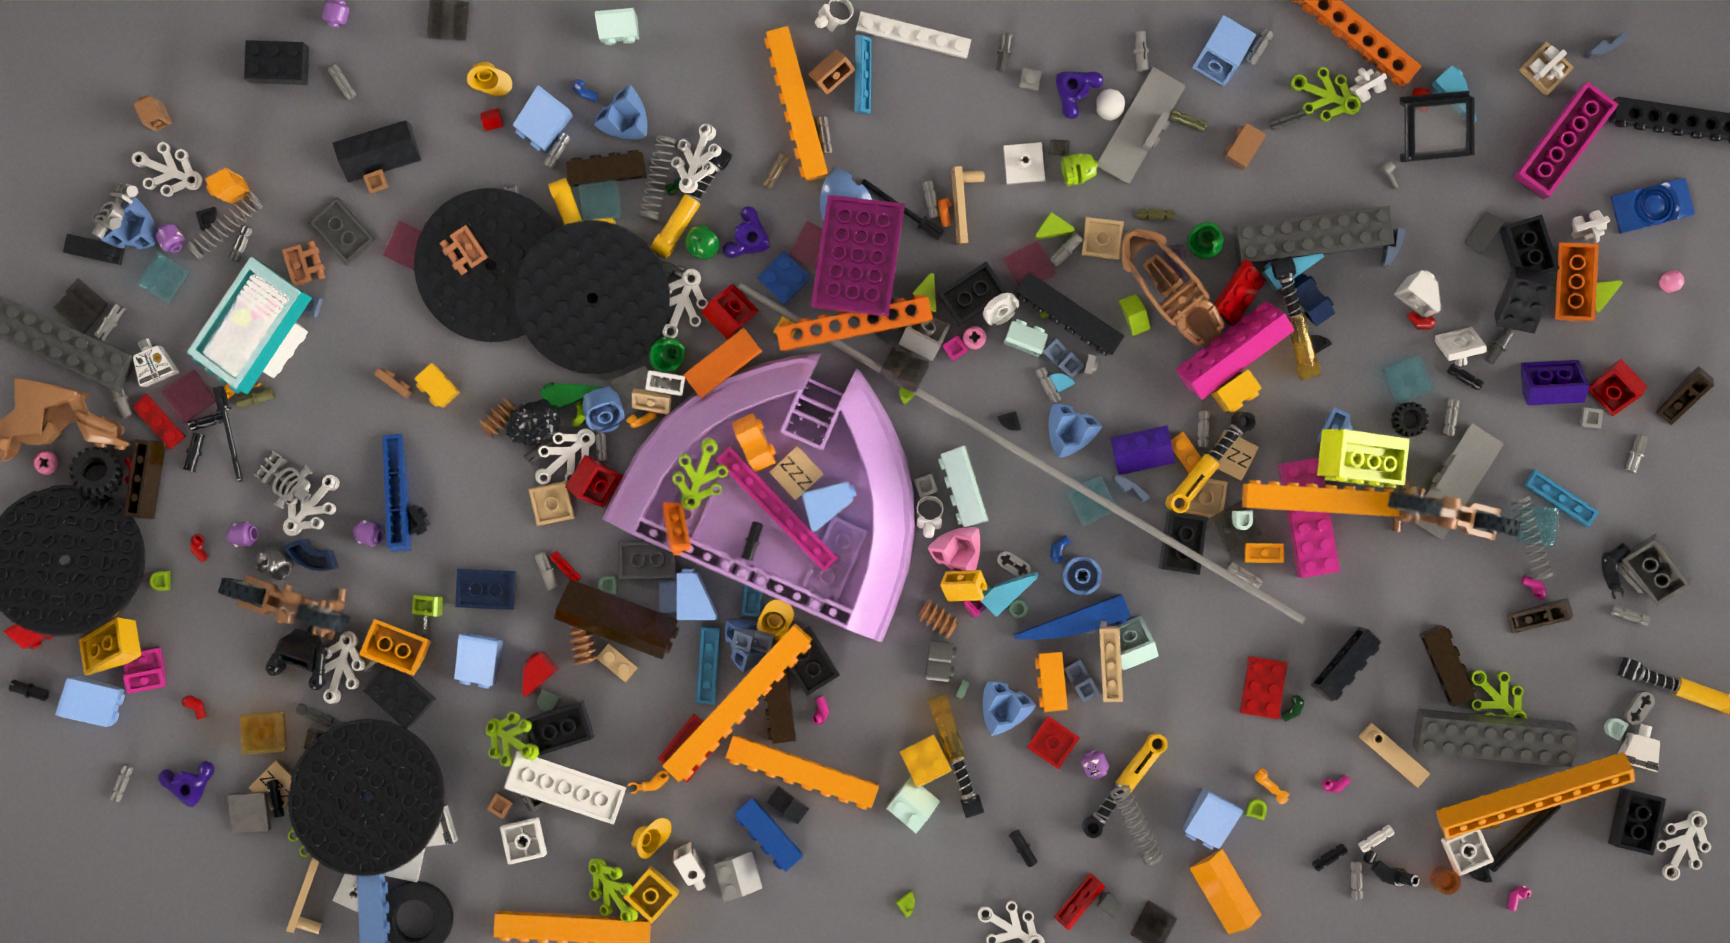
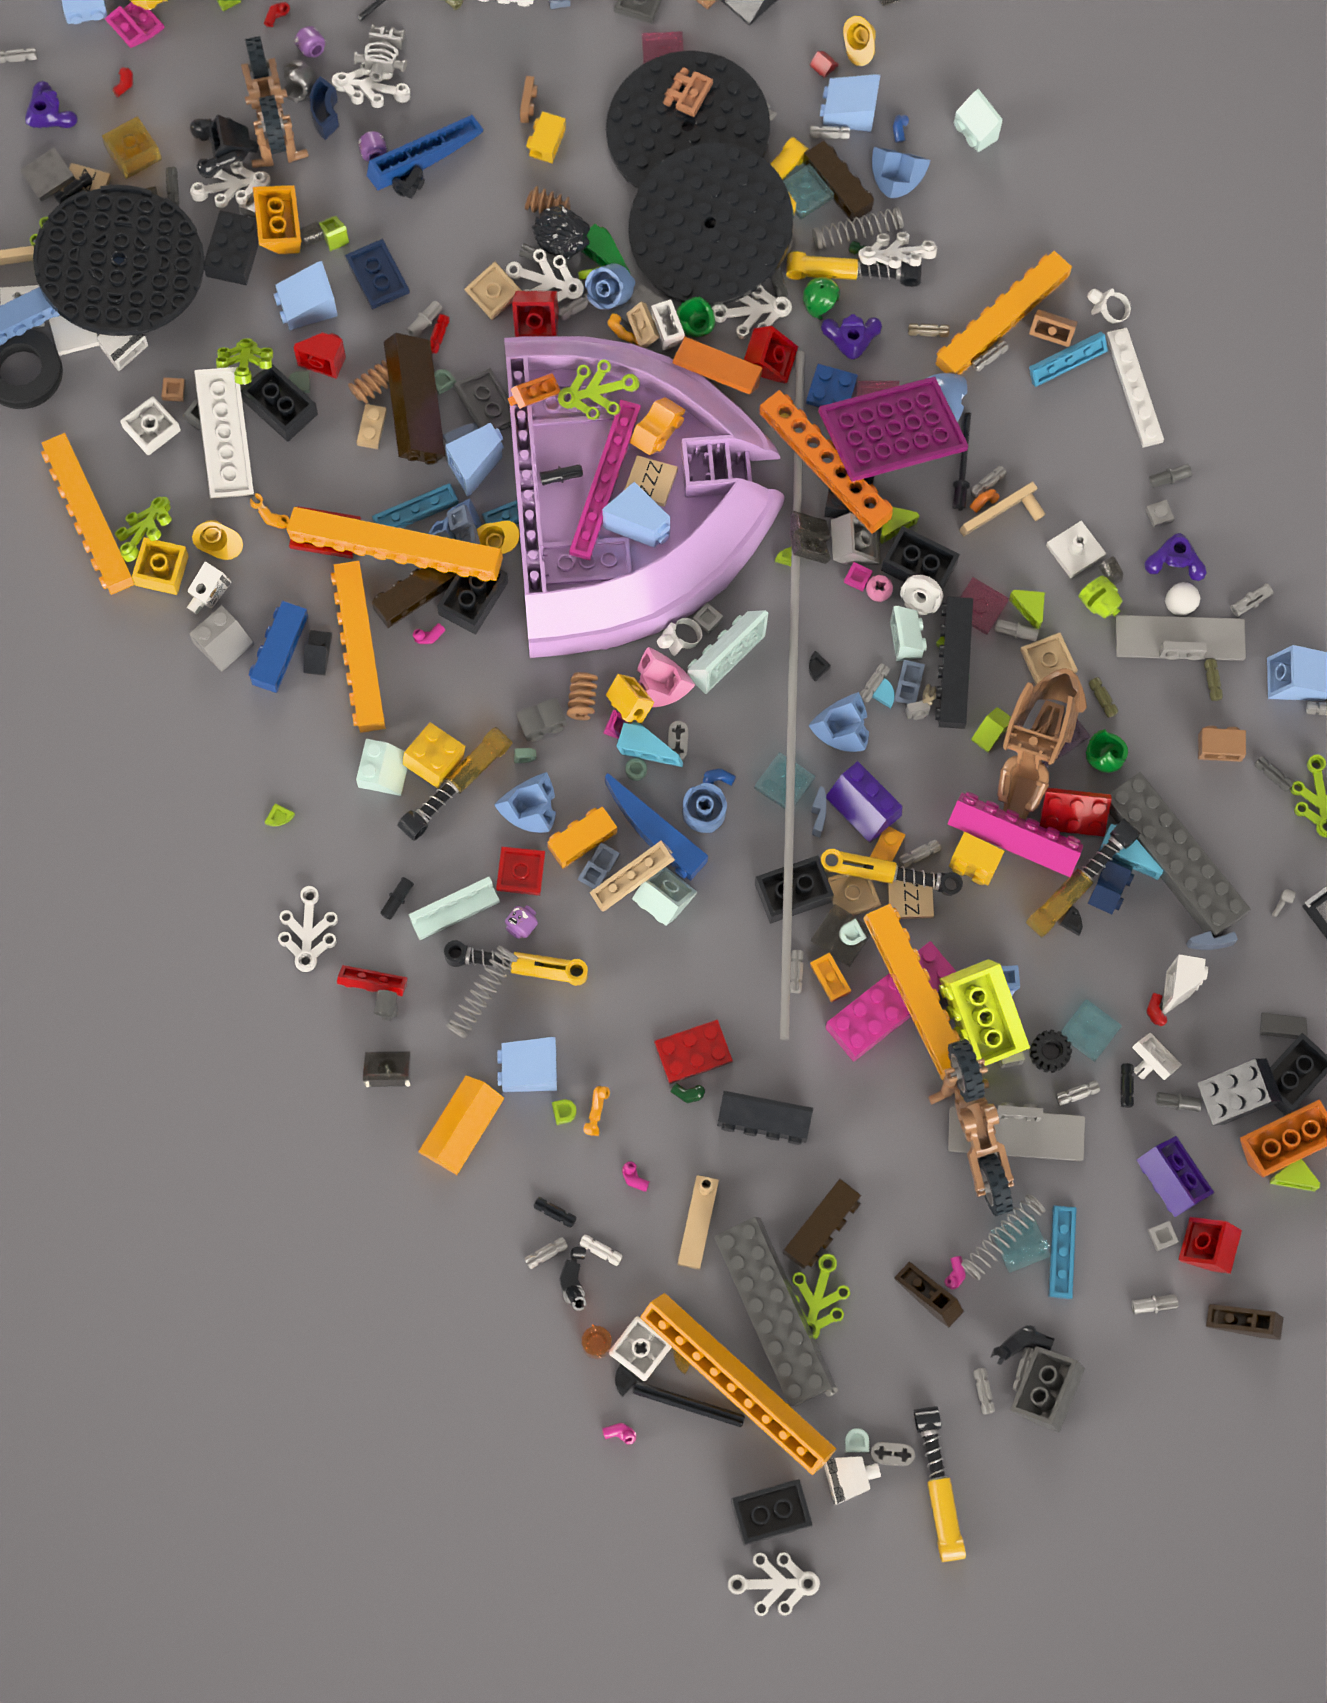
camera: 60 degrees right, 15 degrees down
(1056, 809) = (454, 908): none -> light aqua fence
(1085, 350) = (929, 694): none -> dark tan axle

